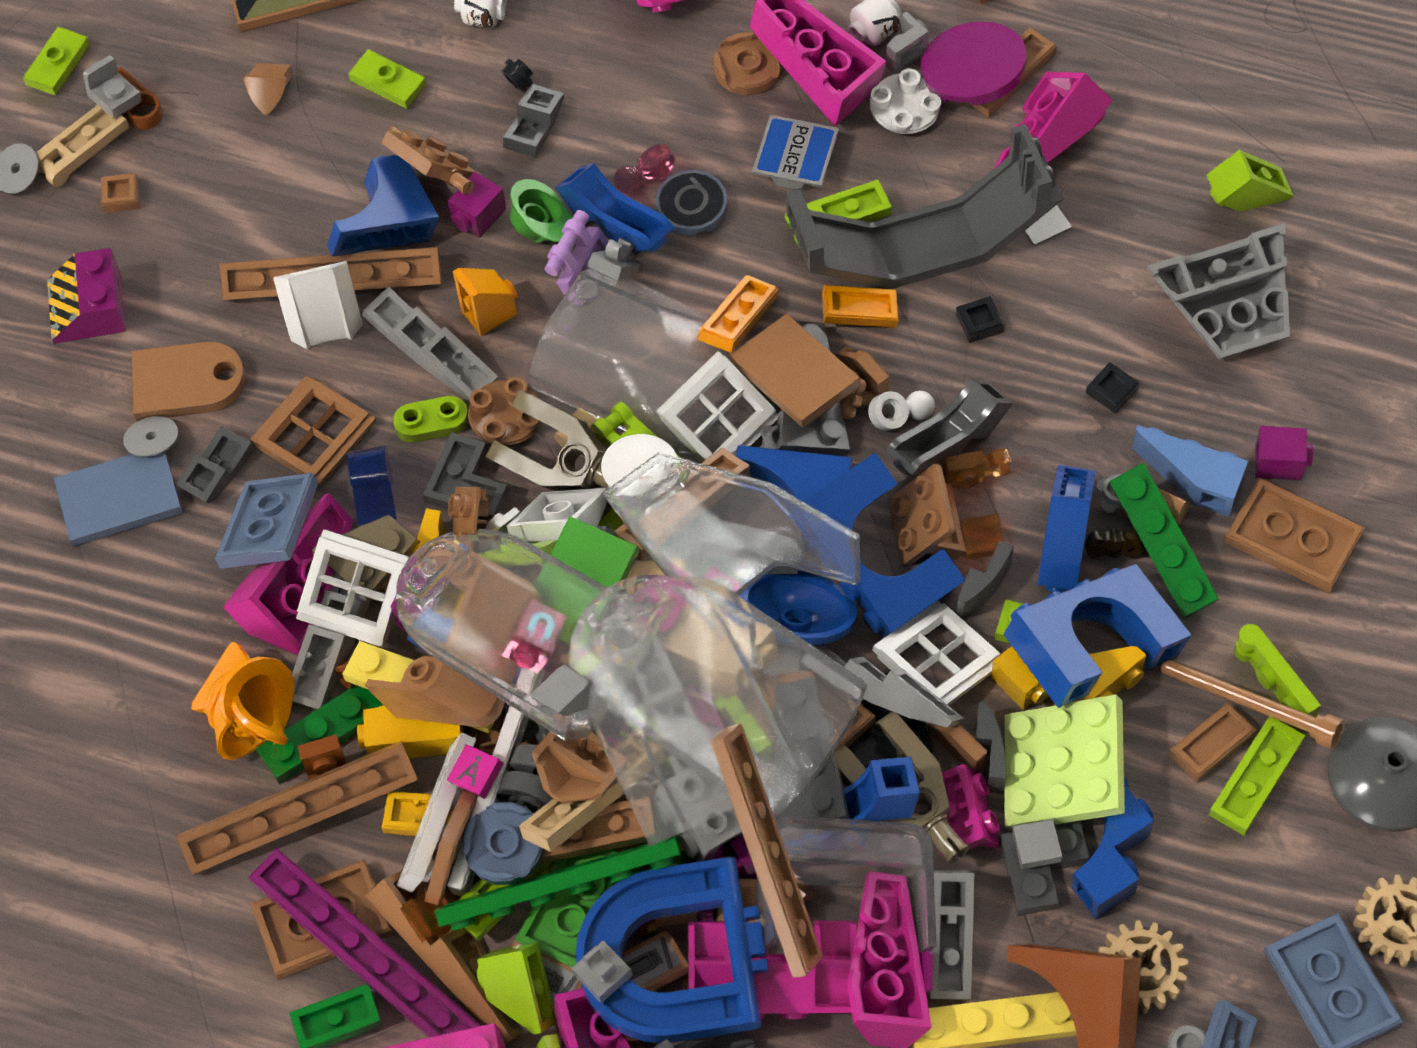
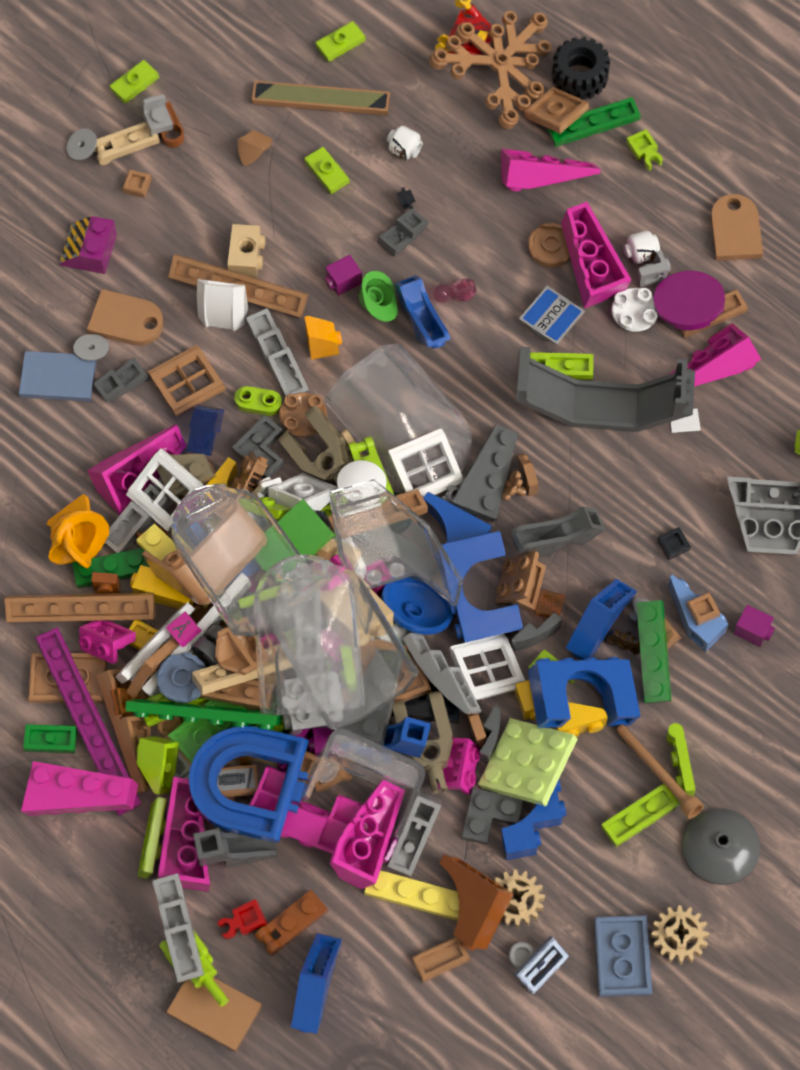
camera: 20 degrees right, 5 degrees up
(267, 521) = (134, 428): sand blue tile -> none
(312, 207) = (246, 238): none -> tan brick
(356, 839) = (103, 639): none -> dark pink bracket
(396, 212) = (290, 264): blue arch -> none
(431, 158) = (326, 235): medium nougat plate -> none
(508, 928) = (167, 726): none -> medium nougat tile
(534, 636) = (246, 564): clear pink brick -> none
(564, 691) = (244, 606): light grey slope -> none
(587, 241) = (397, 333): lavender plate -> none
(602, 971) = (202, 774): light grey tile -> none
(615, 260) = (407, 346): light grey tile -> none
(692, 202) = (474, 323): black tile -> none
(738, 314) = (467, 408): light orange tile -> none
(767, 850) = (319, 744): medium nougat tile -> none
(795, 370) = (482, 458): medium nougat tile -> none
(859, 306) = (544, 431): light orange tile -> none
(918, 406) = (550, 508): white plate -> none
(971, 468) = (563, 560): clear orange plate -> none
(979, 319) = (614, 468): black tile -> none
(1037, 844) = (489, 802): light grey tile -> none
(1205, 454) = (703, 609): none -> medium nougat tile
(1212, 742) = (625, 784): medium nougat tile -> none
(1294, 535) = (738, 679): medium nougat tile -> none

